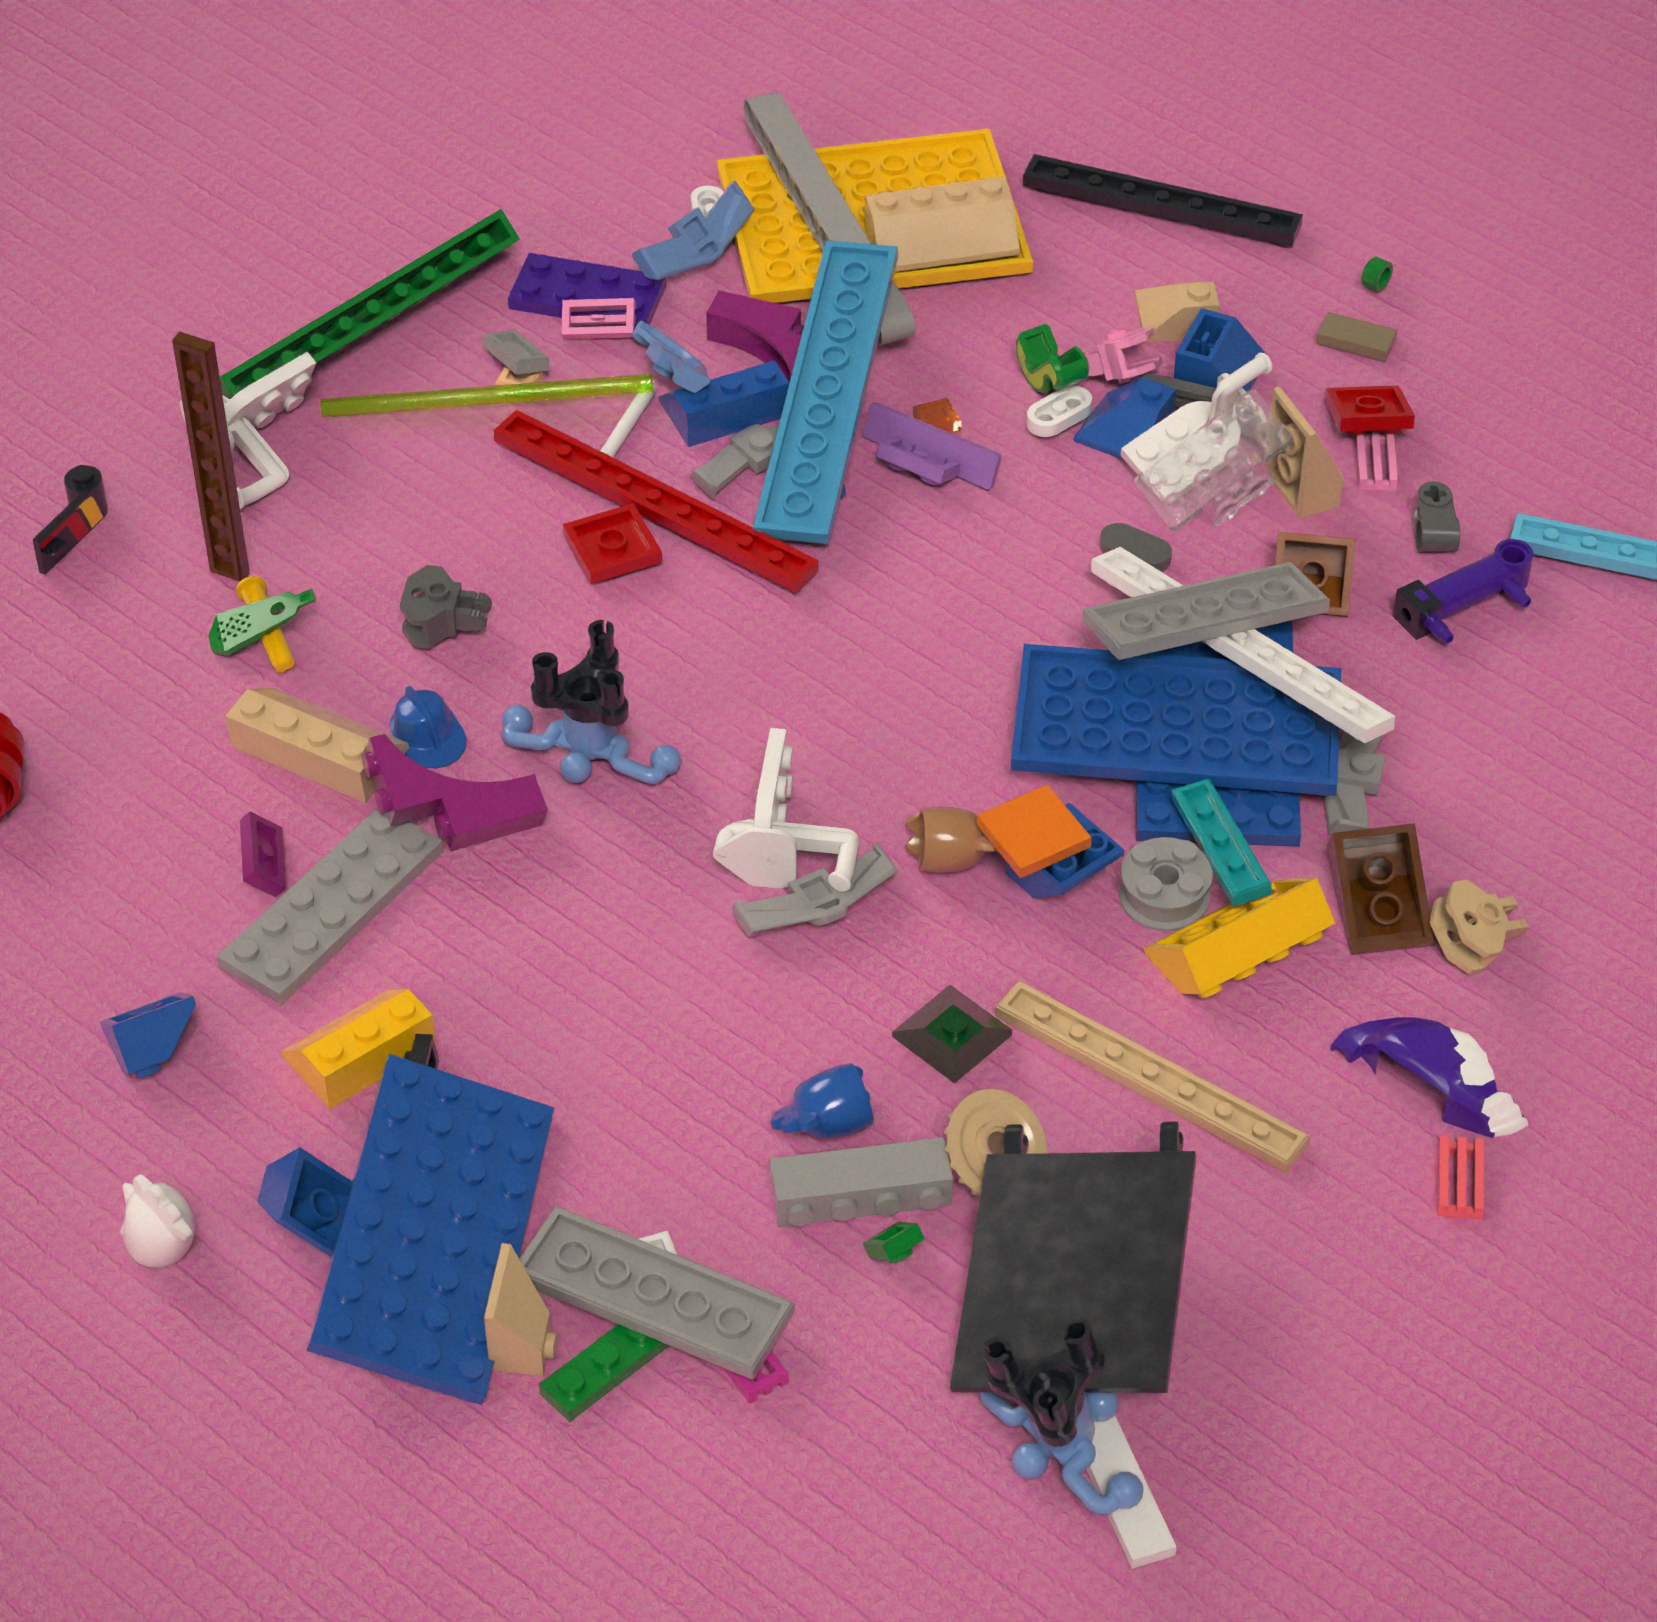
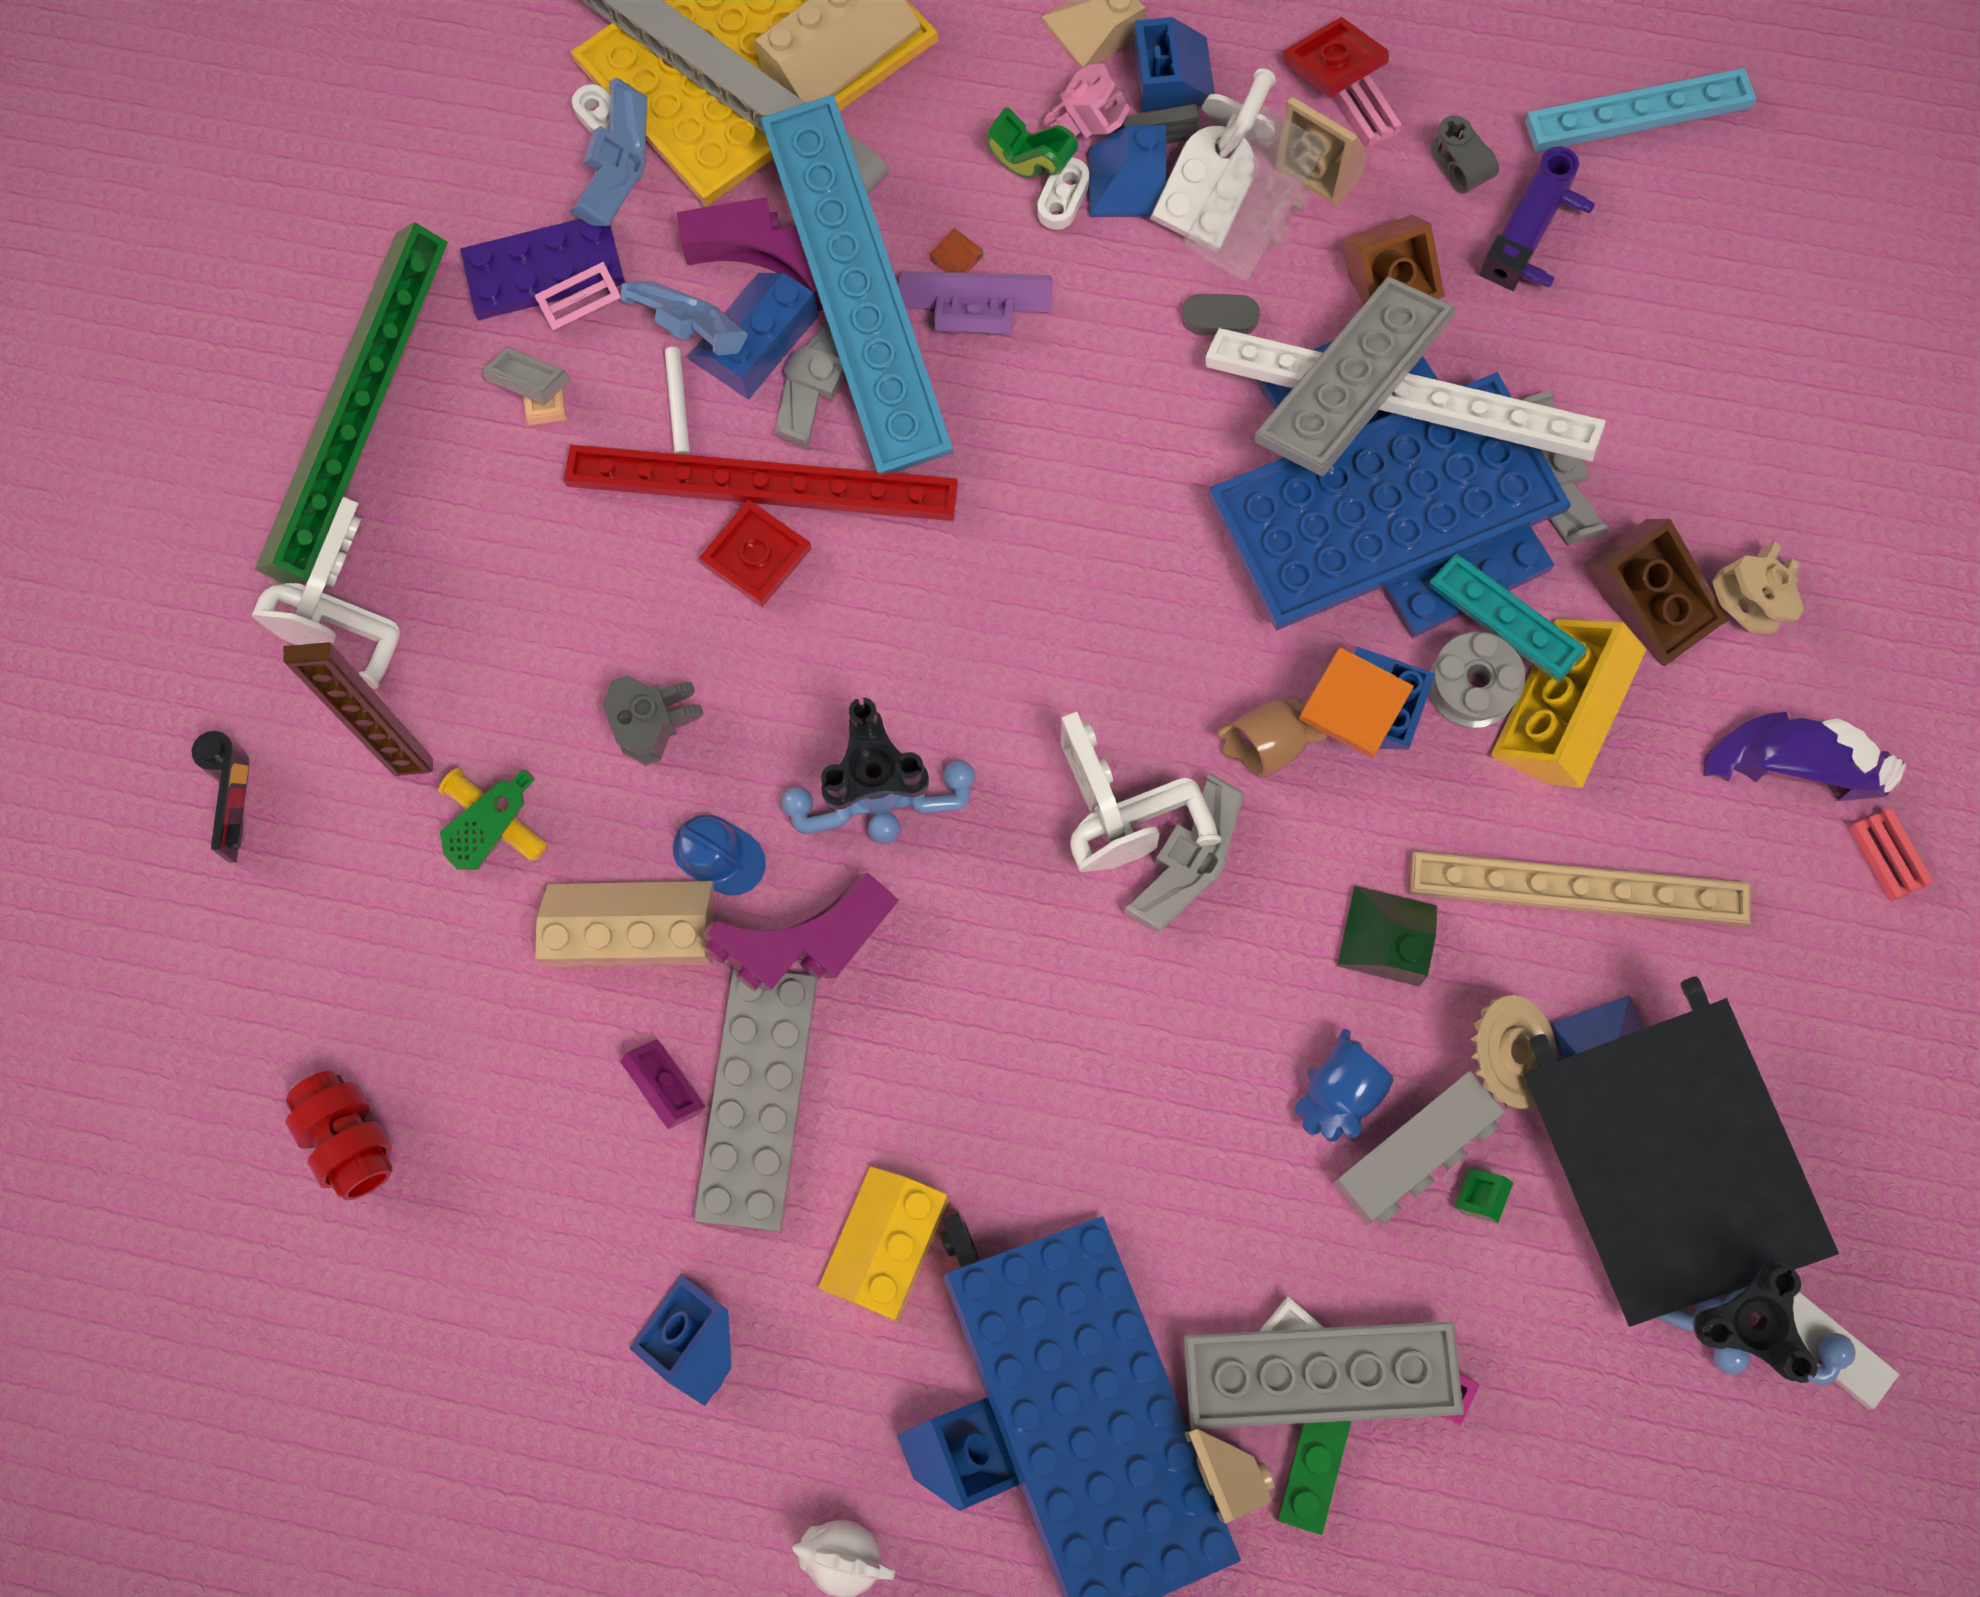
camera: 25 degrees left, 25 degrees up
(487, 395) = (528, 440): clear neon green piece -> none

